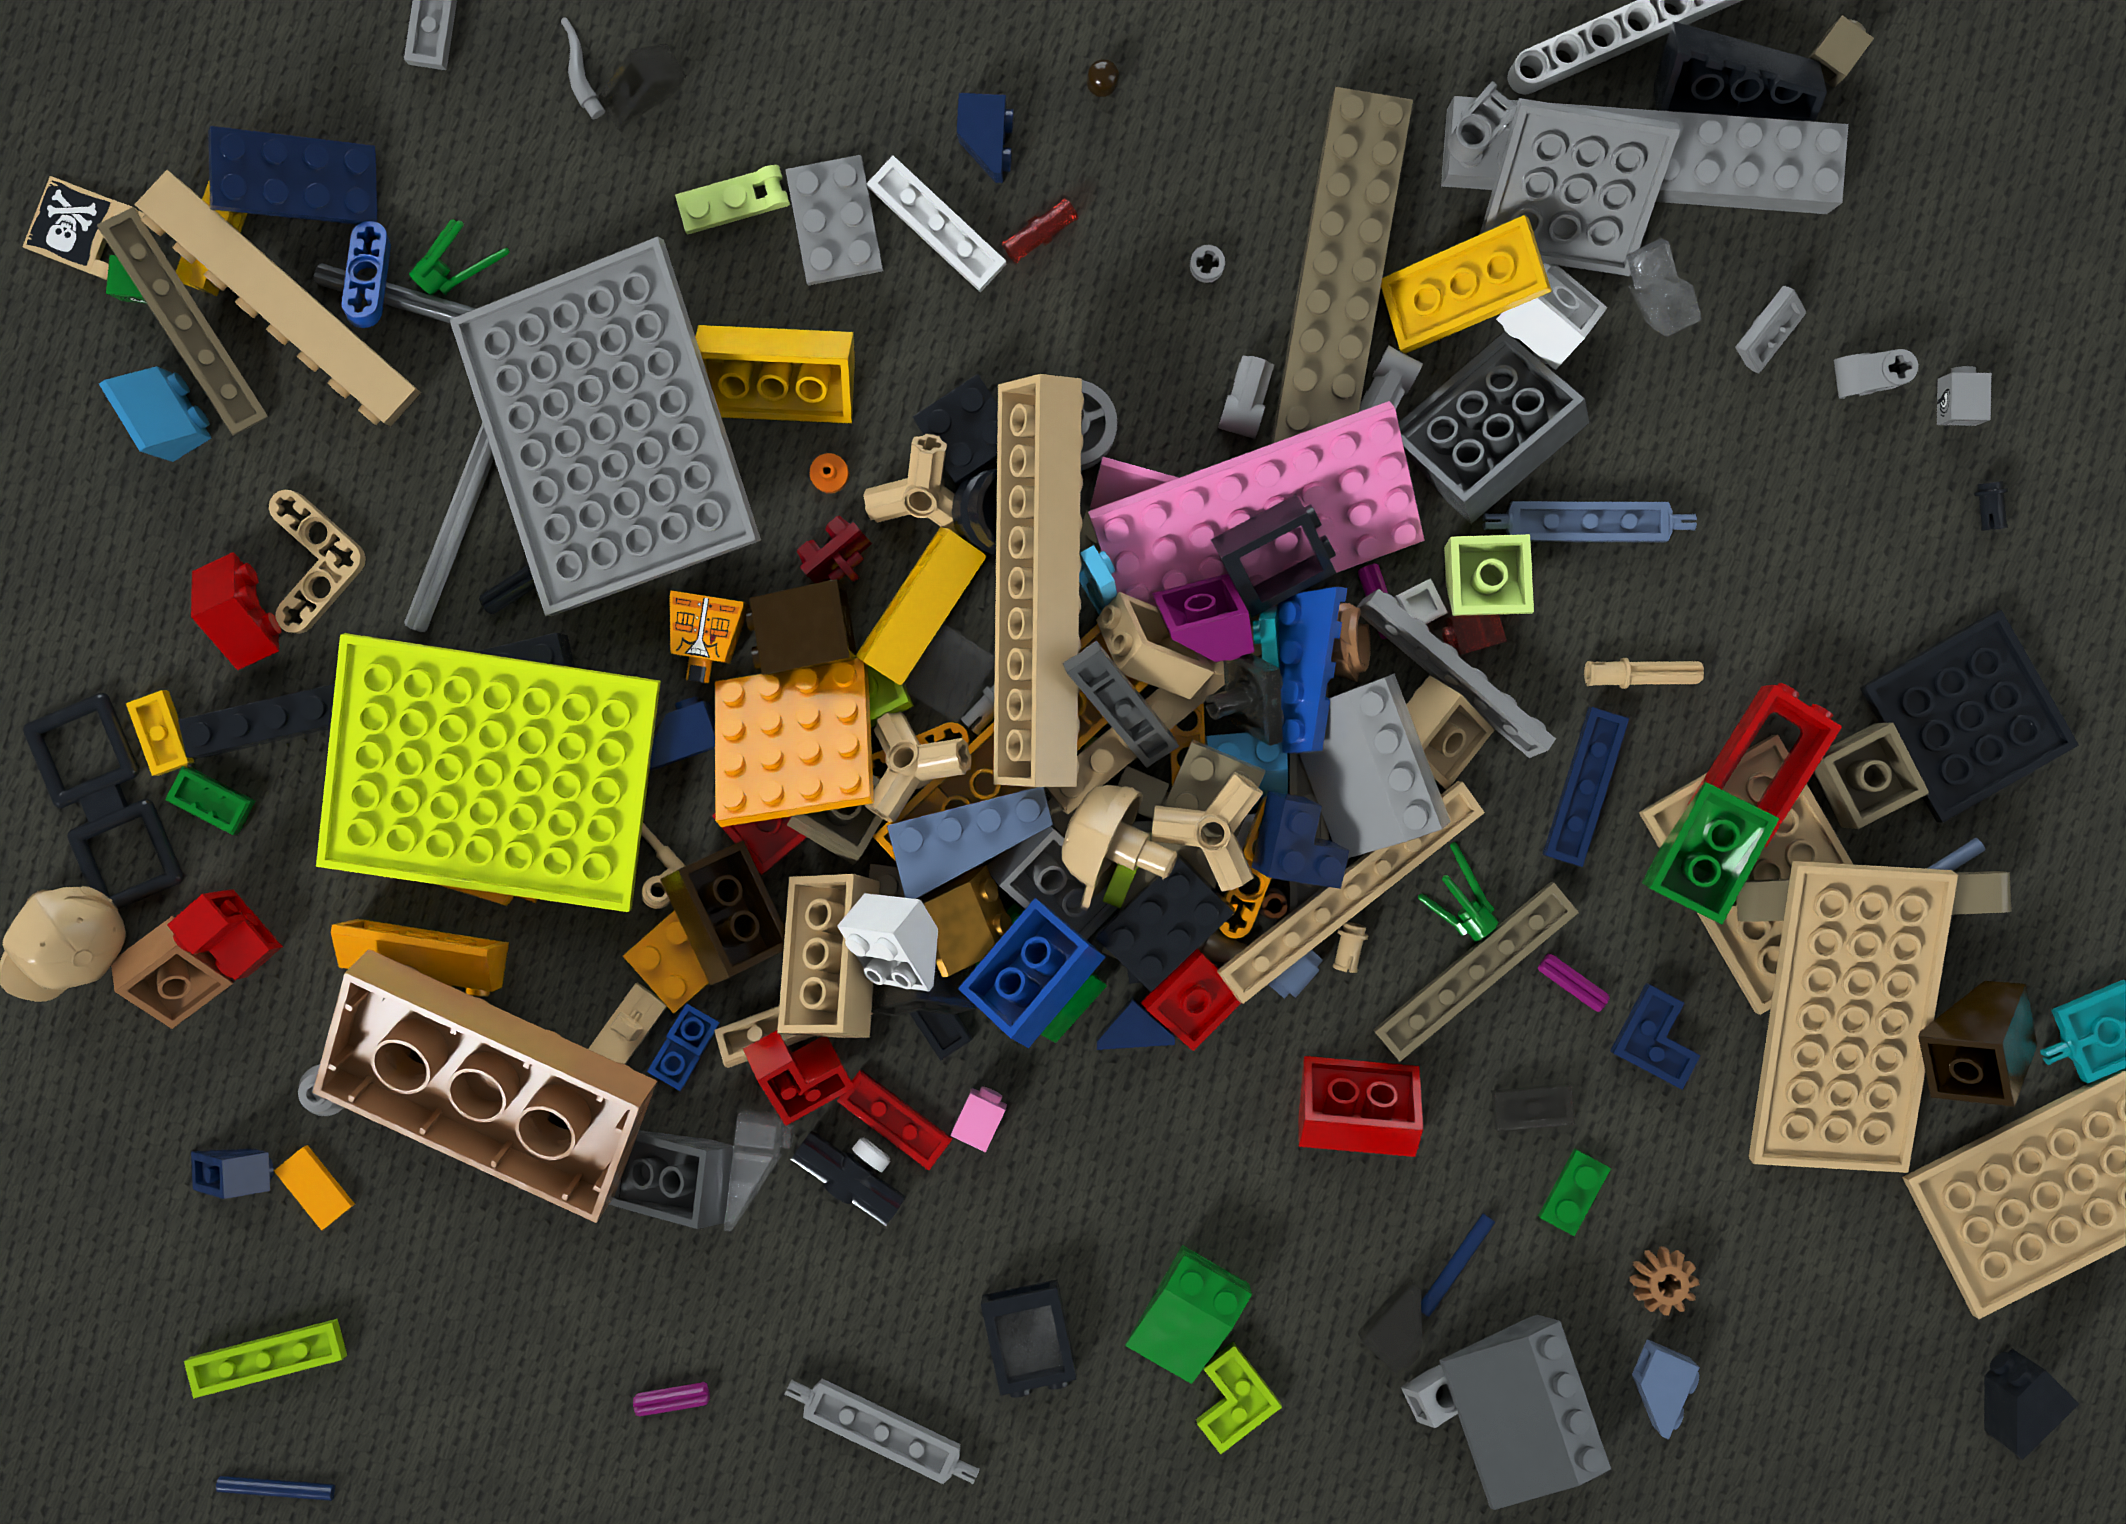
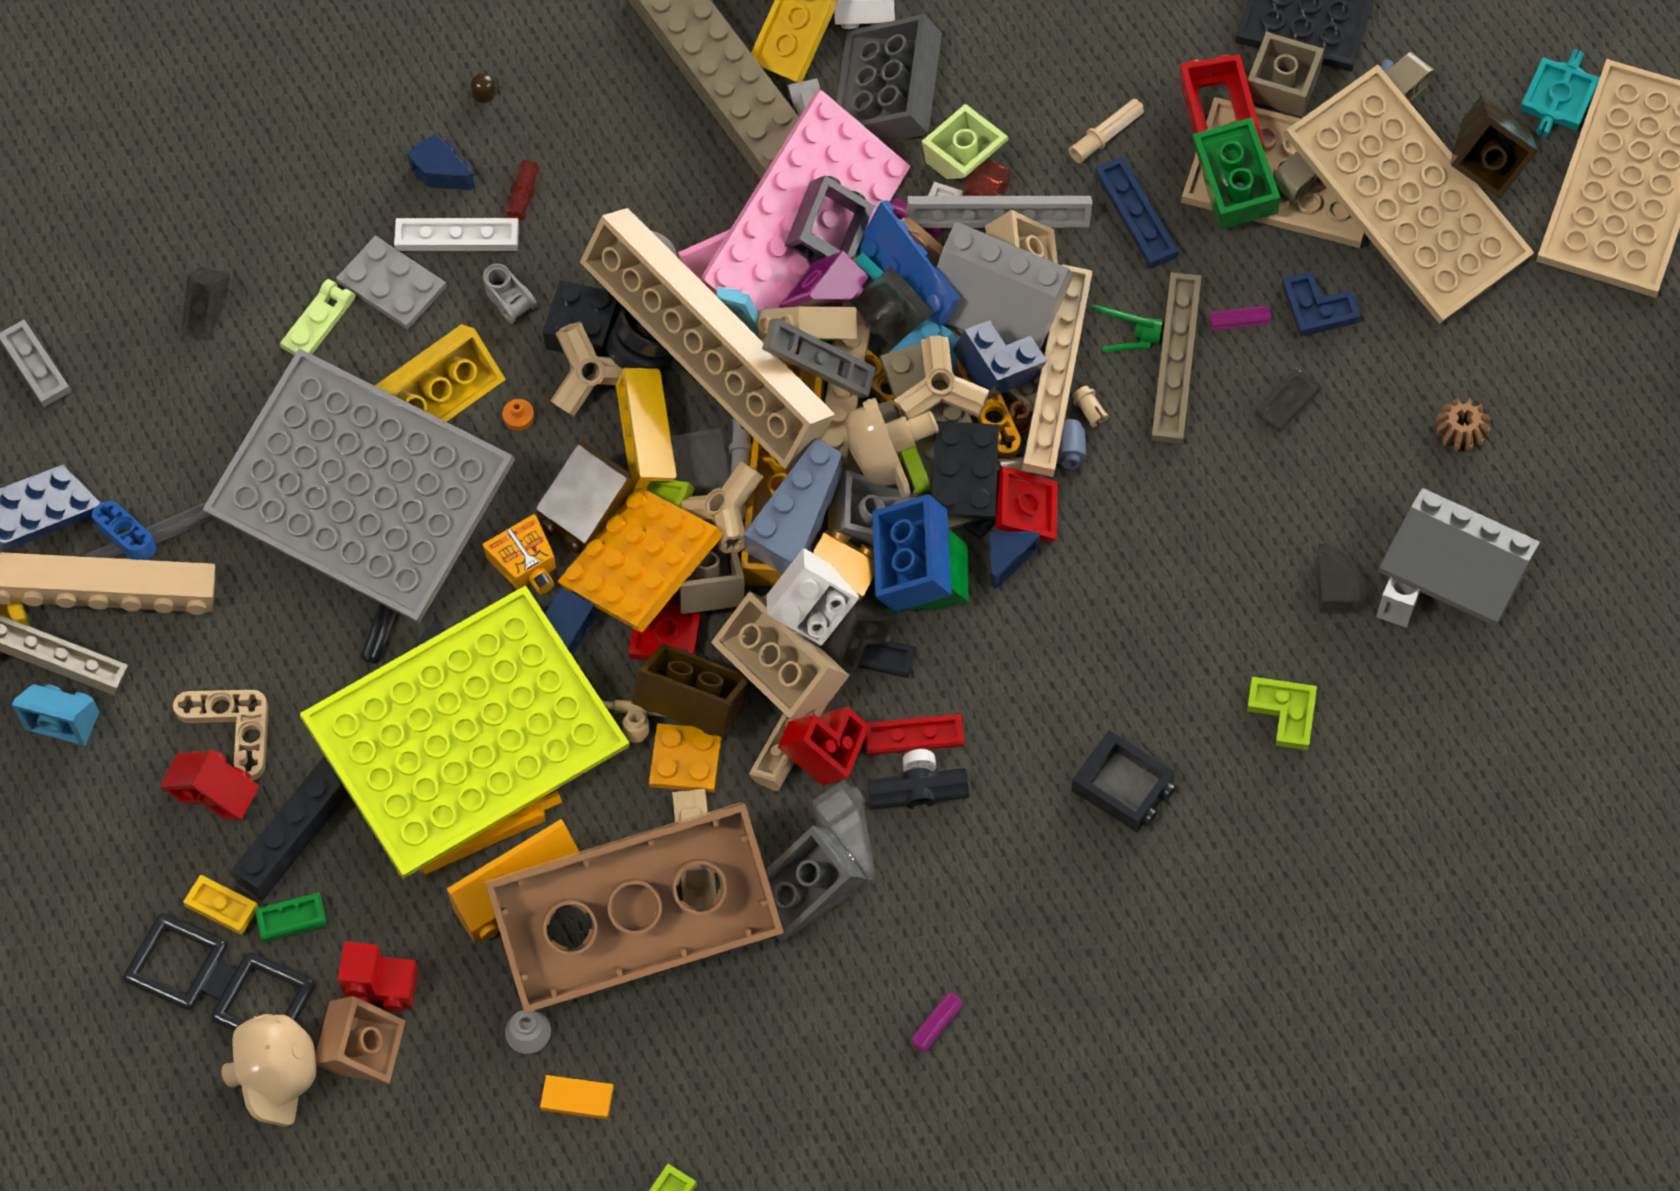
camera: 45 degrees left, 25 degrees down
(231, 1172) = (510, 1130): dark blue slope -> none
(432, 272) = (163, 500): green plant -> none
(451, 534) = (304, 624): light grey axle -> none
(584, 93) = (164, 334): light grey animal -> none
(683, 1047) = (738, 788): blue slope -> none
(836, 557) = (563, 441): dark red hips -> none
(882, 1431) = (1089, 919): light grey plate -> none
(926, 339) = (511, 296): none -> light grey piece
(979, 1118) = (965, 683): bright pink brick -> none
(1189, 1315) = (1207, 685): green slope -> none
(1199, 255) = (637, 139): light grey bush -> none
(1245, 405) = (732, 178): light grey piece -> none
(1360, 1106) = (1188, 484): red slope -> none
(1456, 1264) = (1335, 519): dark blue bar -> none
(1574, 1192) = (1361, 426): green plate -> none
(1591, 521) = (999, 77): sand blue plate -> none
(1664, 1383) = (1523, 481): sand blue slope -> none

